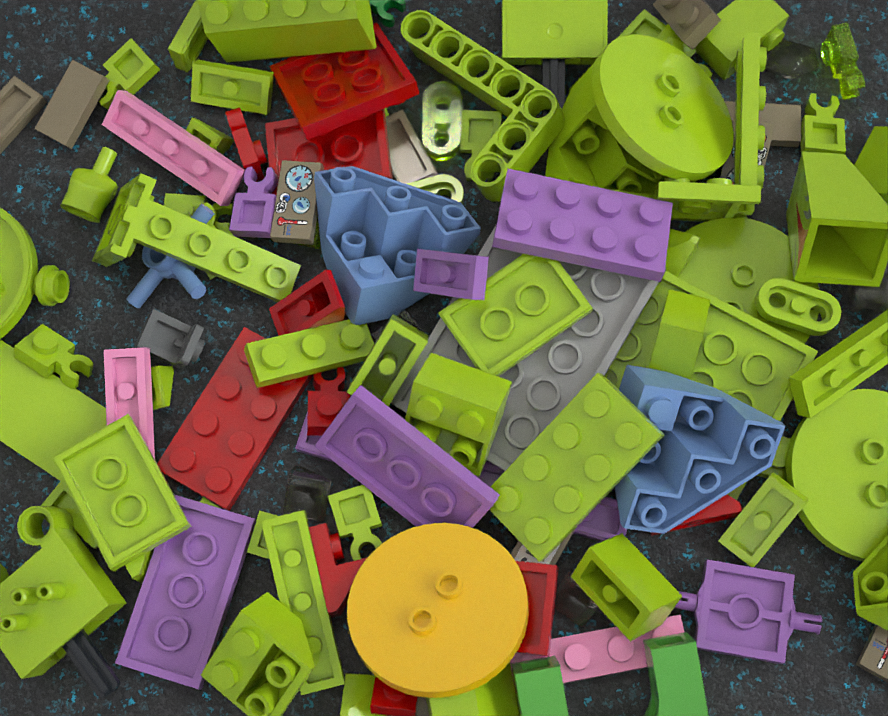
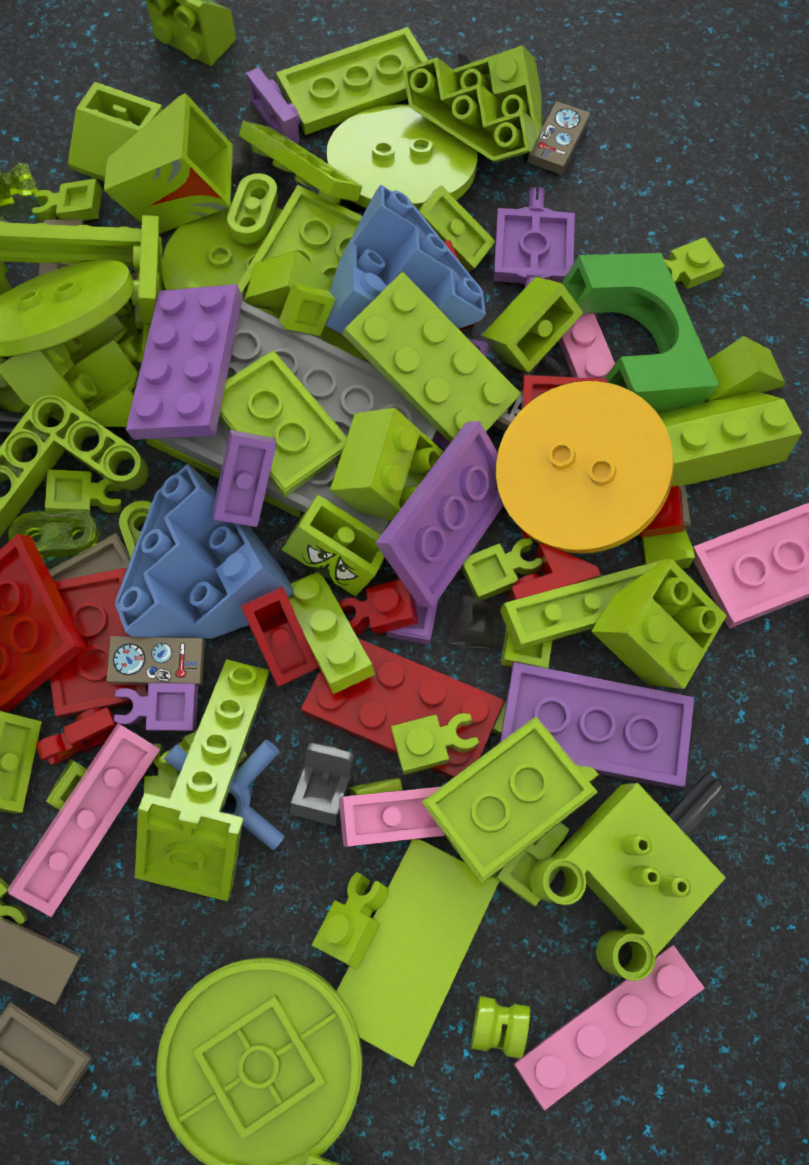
camera: 100 degrees left, 5 degrees down
(51, 285) = (265, 940): lime plate -> none
(91, 188) = (137, 915): lime piece -> none
(187, 428) = (425, 744): none -> lime plate
(639, 343) = (306, 309): none -> lime plate

